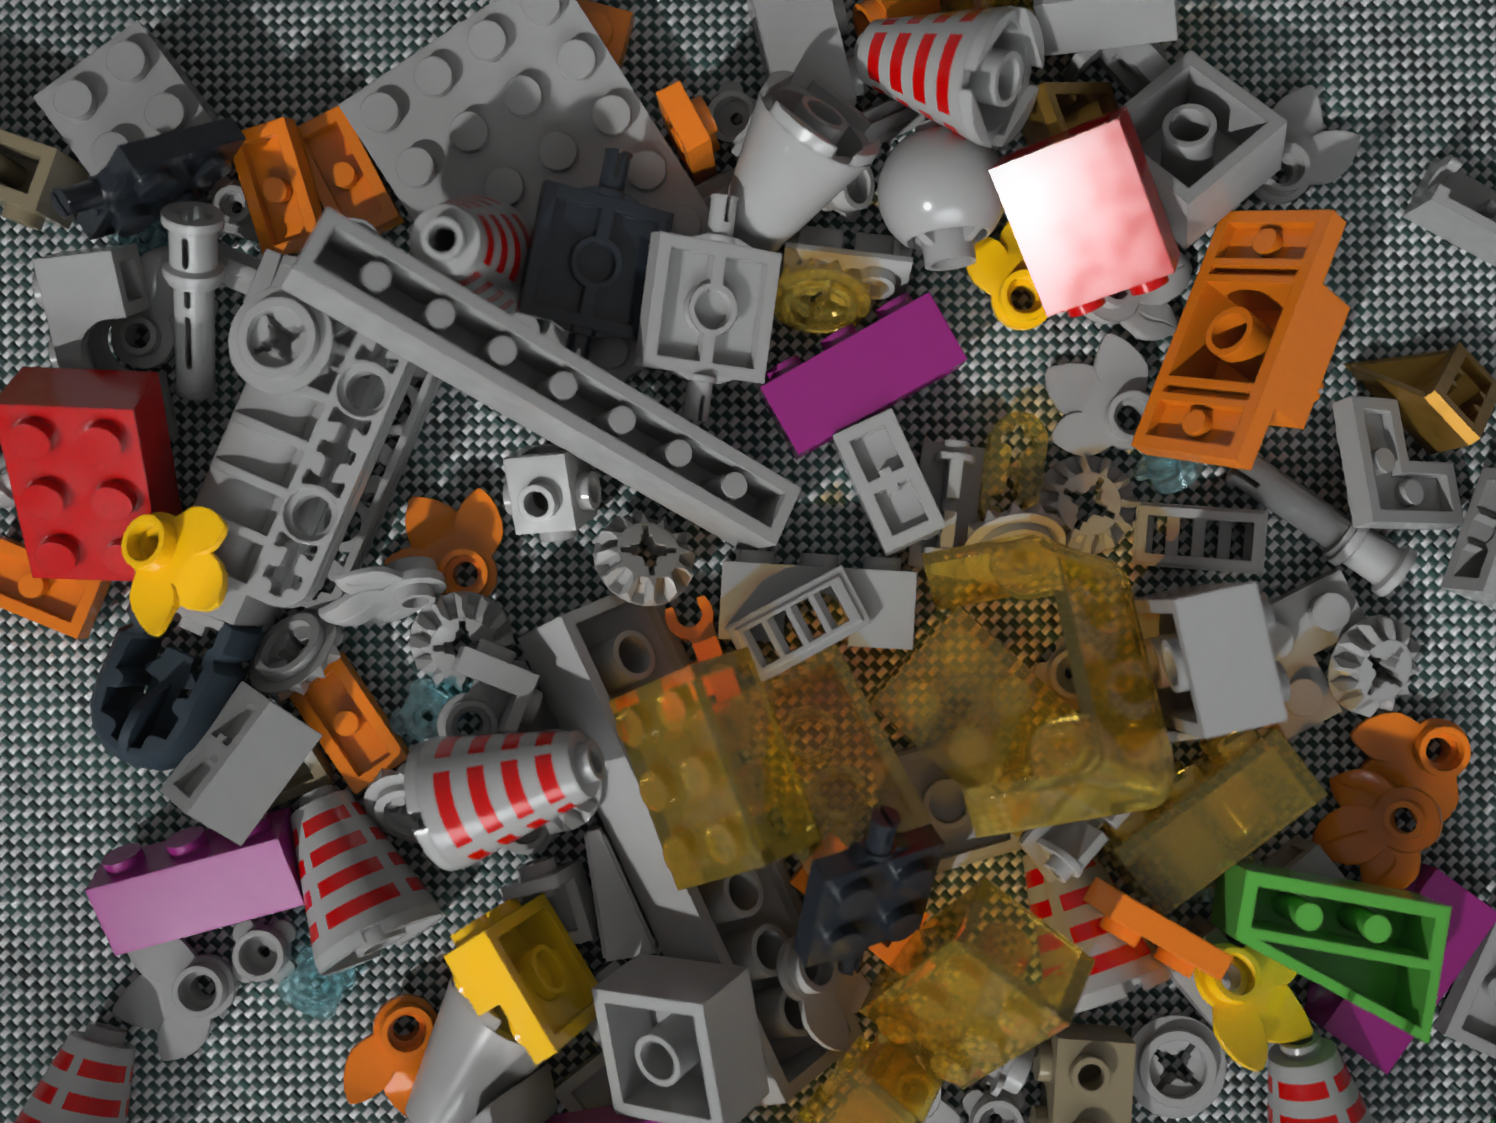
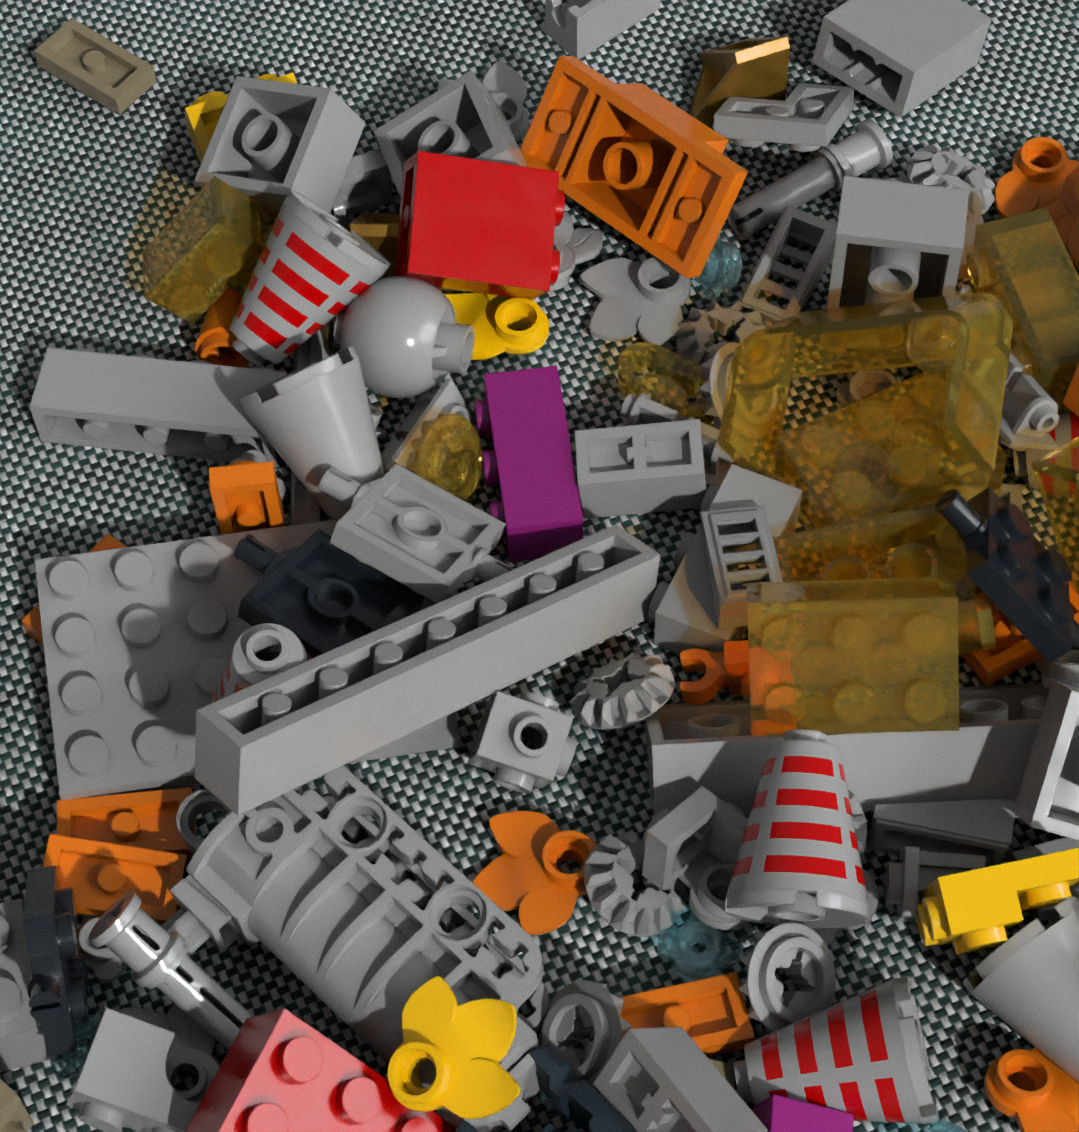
camera: 65 degrees left, 30 degrees down
(255, 333) = (255, 851): light grey gear -> none
(385, 593) = (556, 909): light grey plate -> none

